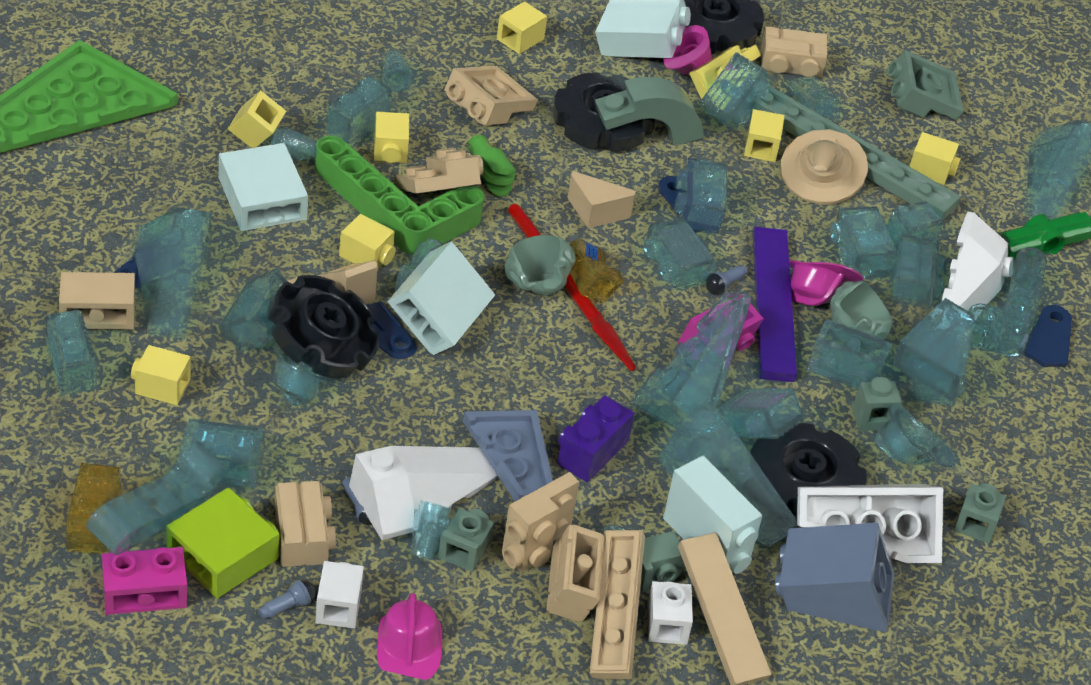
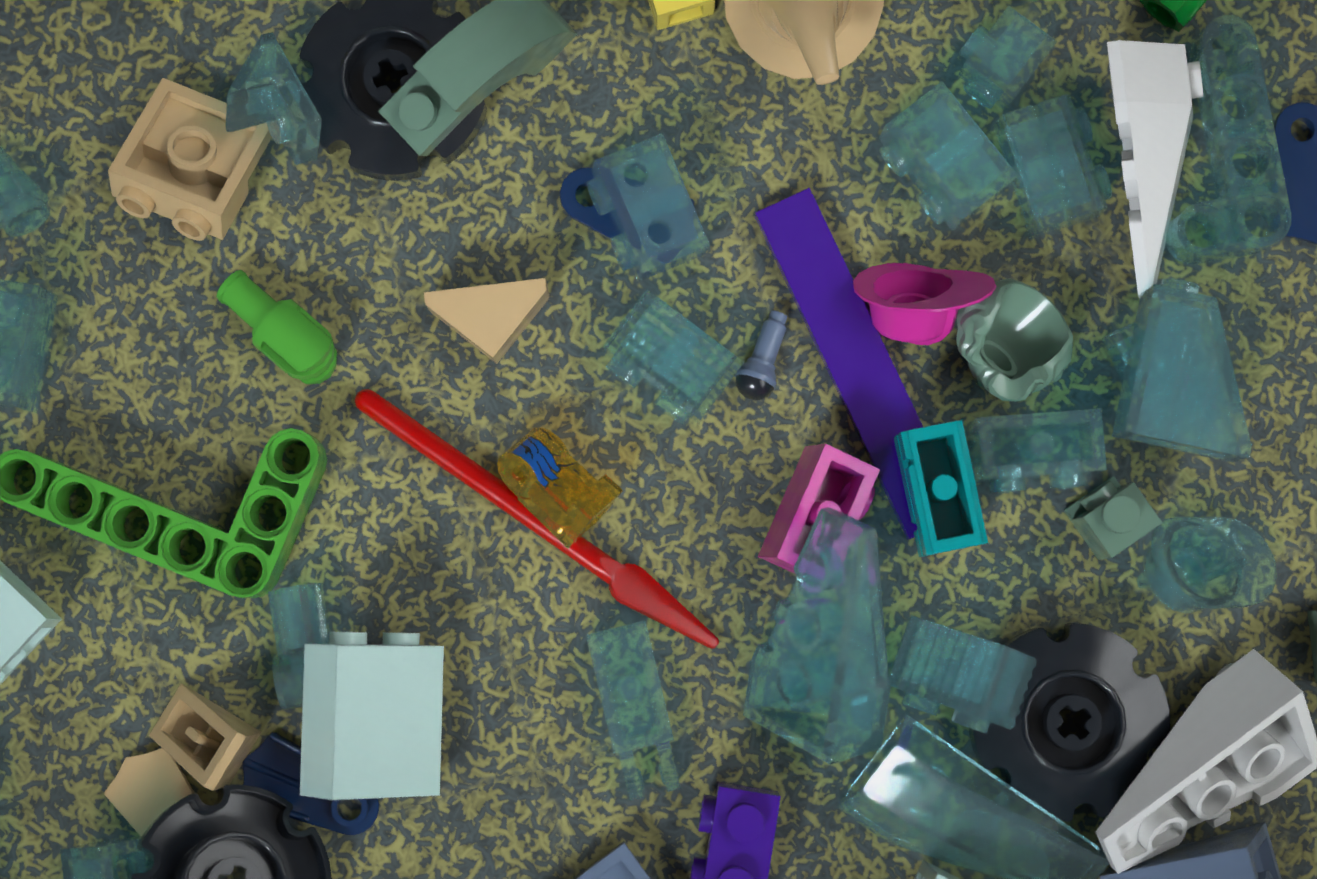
camera: 20 degrees left, 40 degrees up
(367, 241) = (190, 641): light yellow brick -> none
(391, 137) = (92, 371): light yellow brick -> none
(446, 170) = (221, 429): tan plate -> none
(540, 264) = (477, 536): sand green hair -> none
(544, 83) = (273, 94): none -> clear light blue slope
(576, 367) = (633, 701): none -> clear light blue hinge
(790, 340) = (940, 488): none -> teal brick

